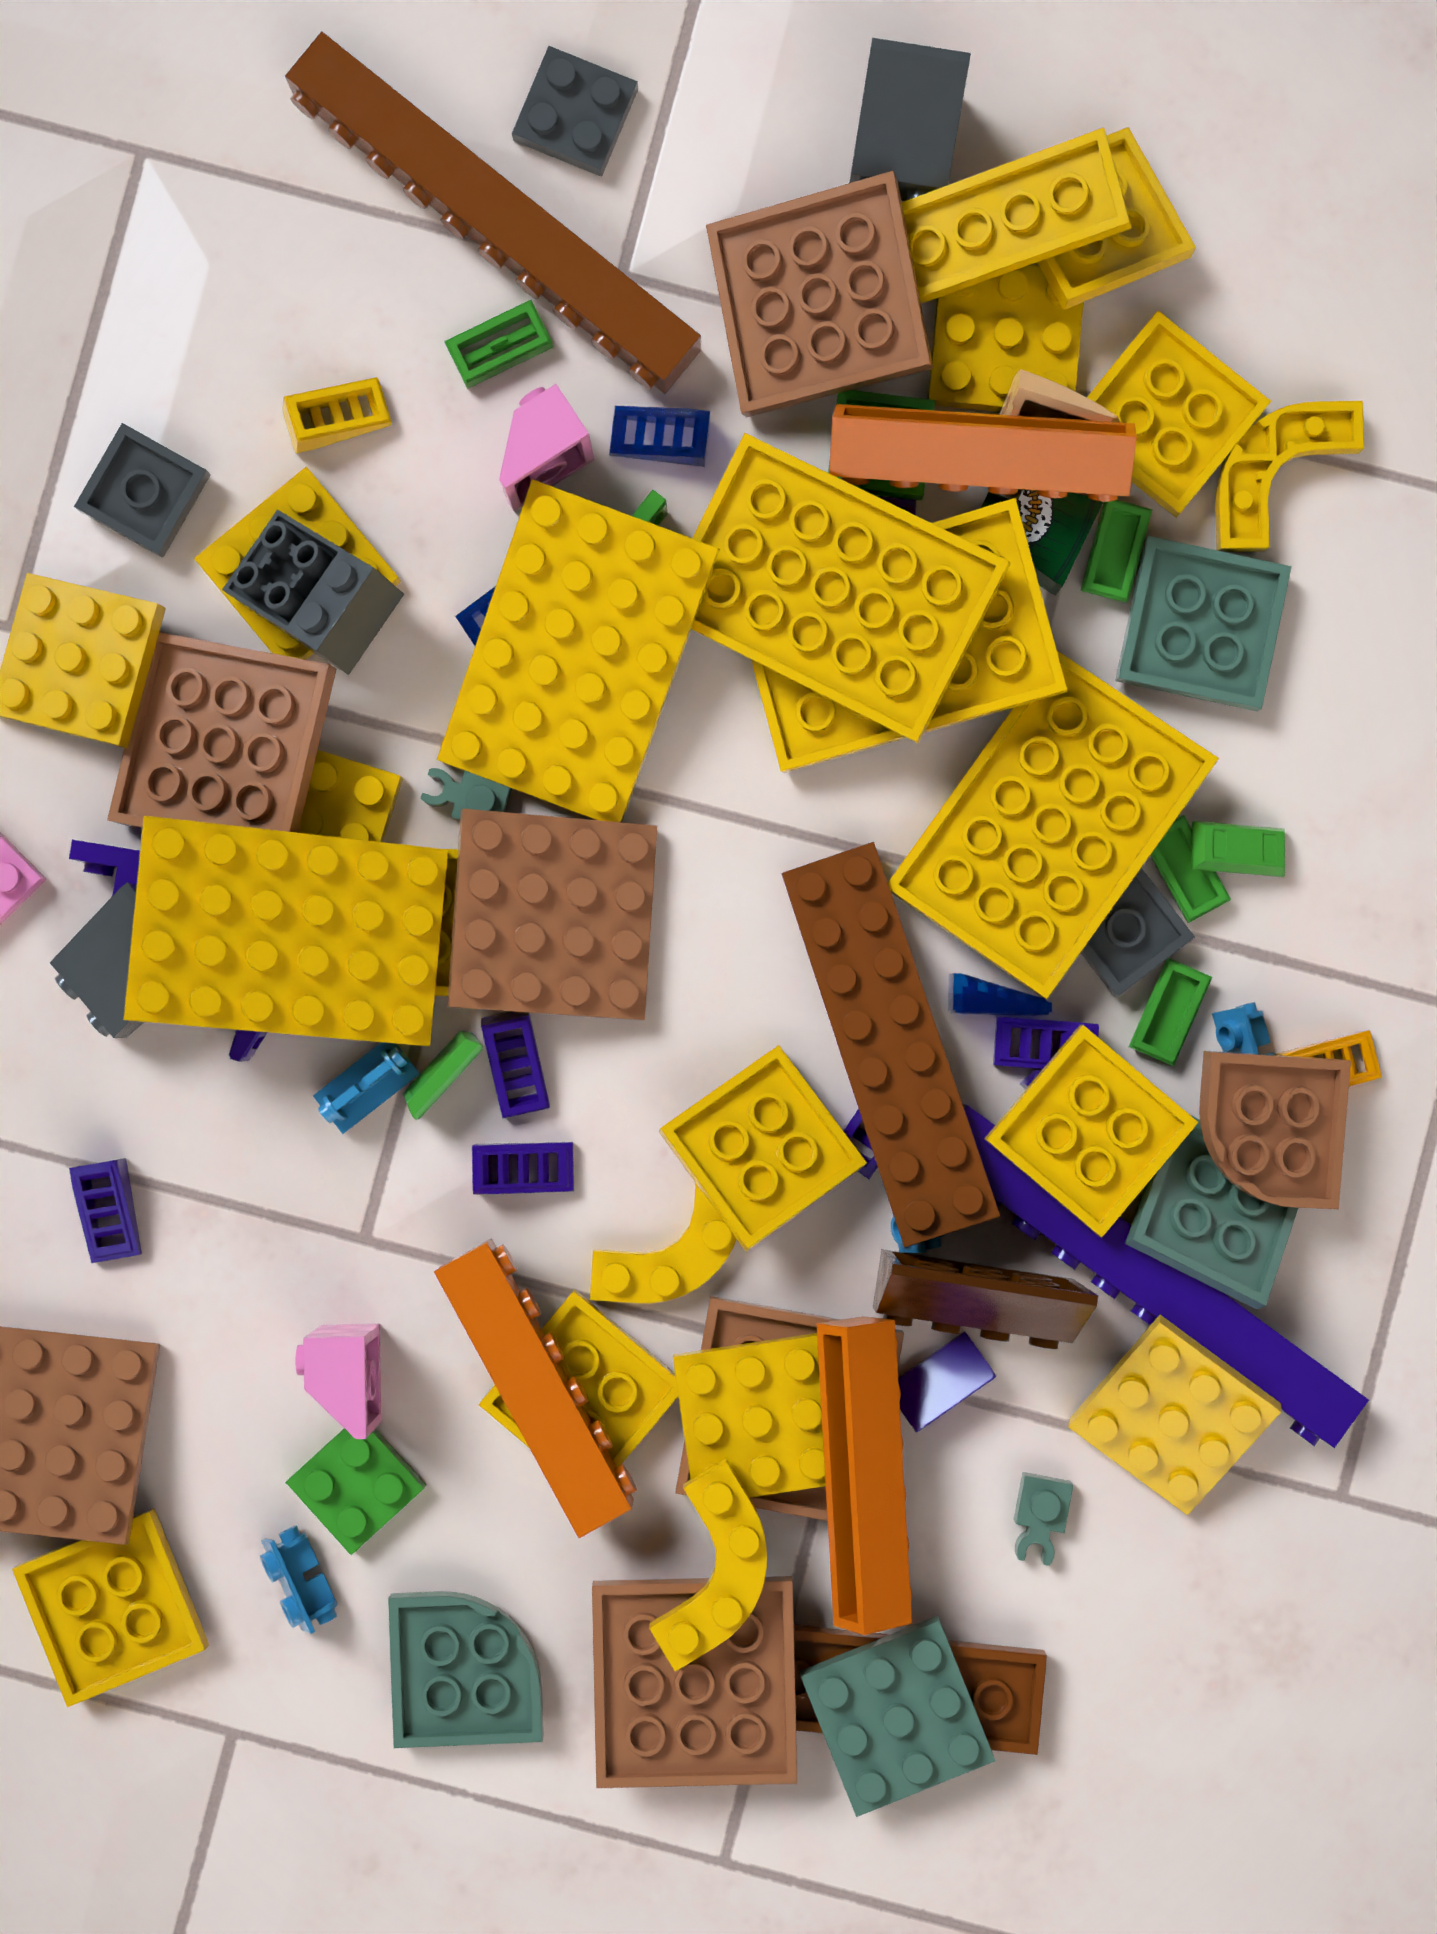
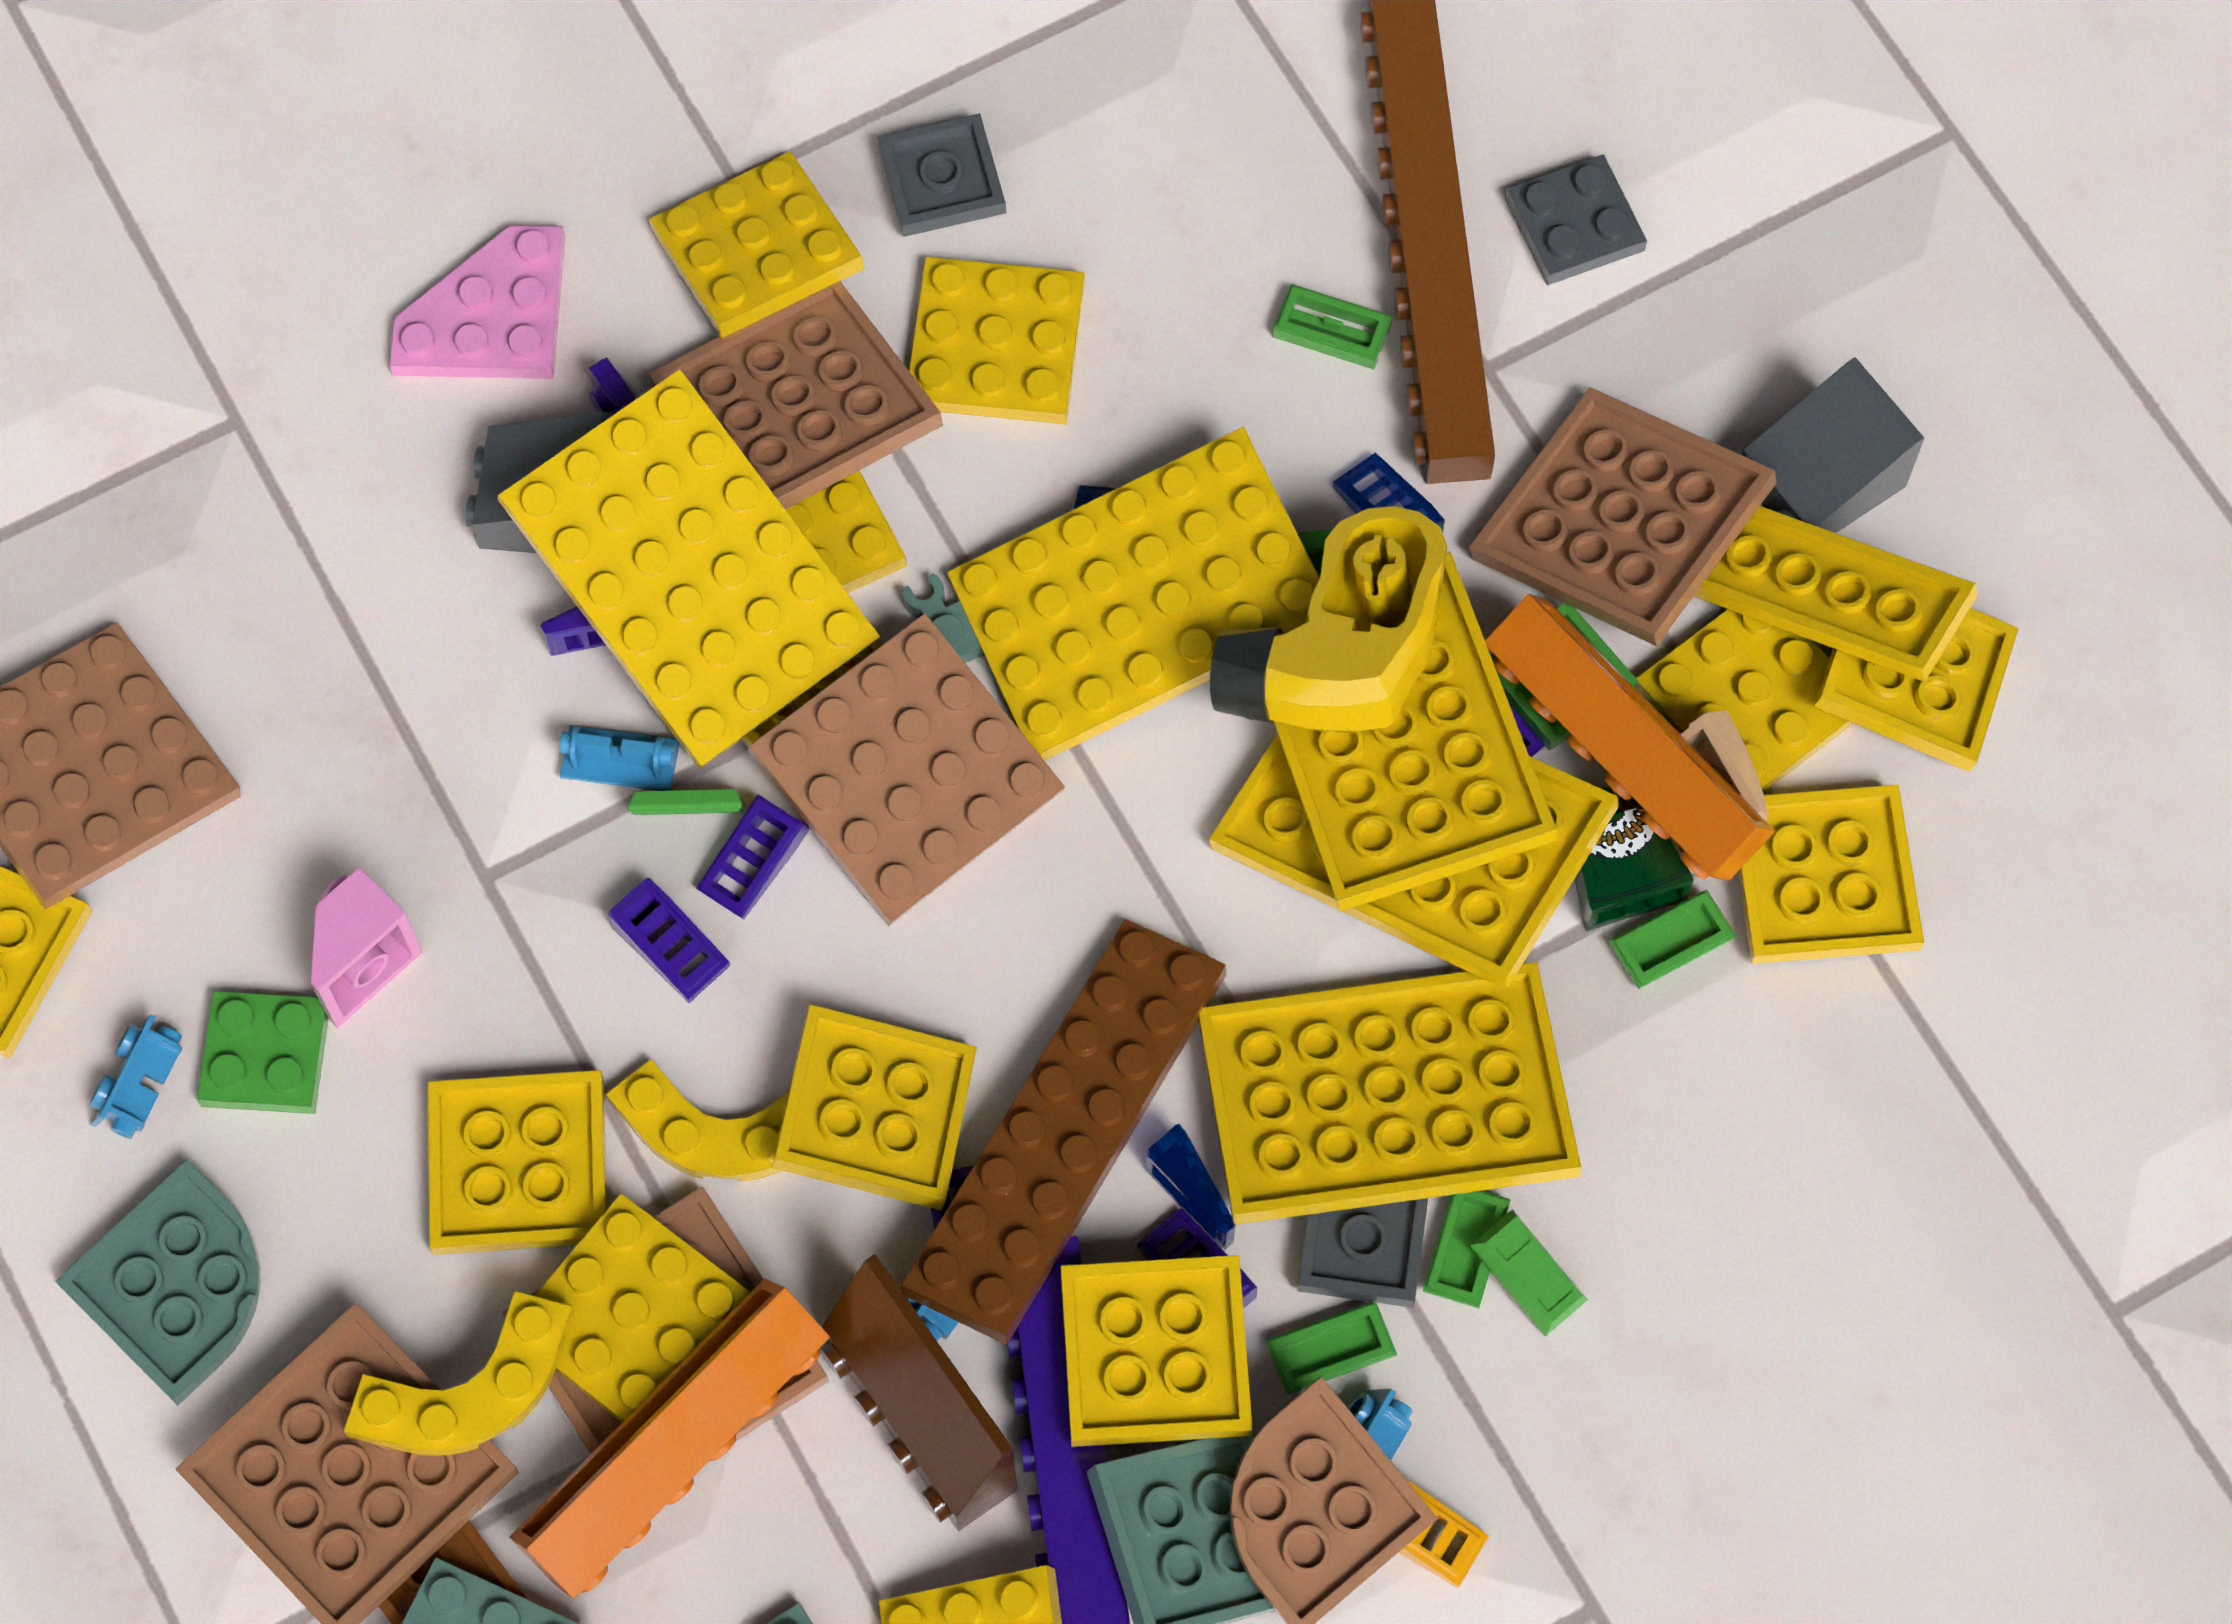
camera: 45 degrees right, 20 degrees down
(88, 1213) = (319, 624): dark purple slope -> none
(314, 591) = (988, 357): dark grey slope -> none
(324, 435) = (1144, 234): yellow slope -> none
(536, 1387) = (489, 1104): orange brick -> none
(543, 444) = (1284, 415): bright pink slope -> none
(759, 550) = (1361, 638): none -> yellow piece
(942, 1381) = (814, 1455): dark purple slope -> none
(1203, 623) = (1685, 1064): sand green plate -> none
(1264, 448) = (1887, 980): yellow plate -> none

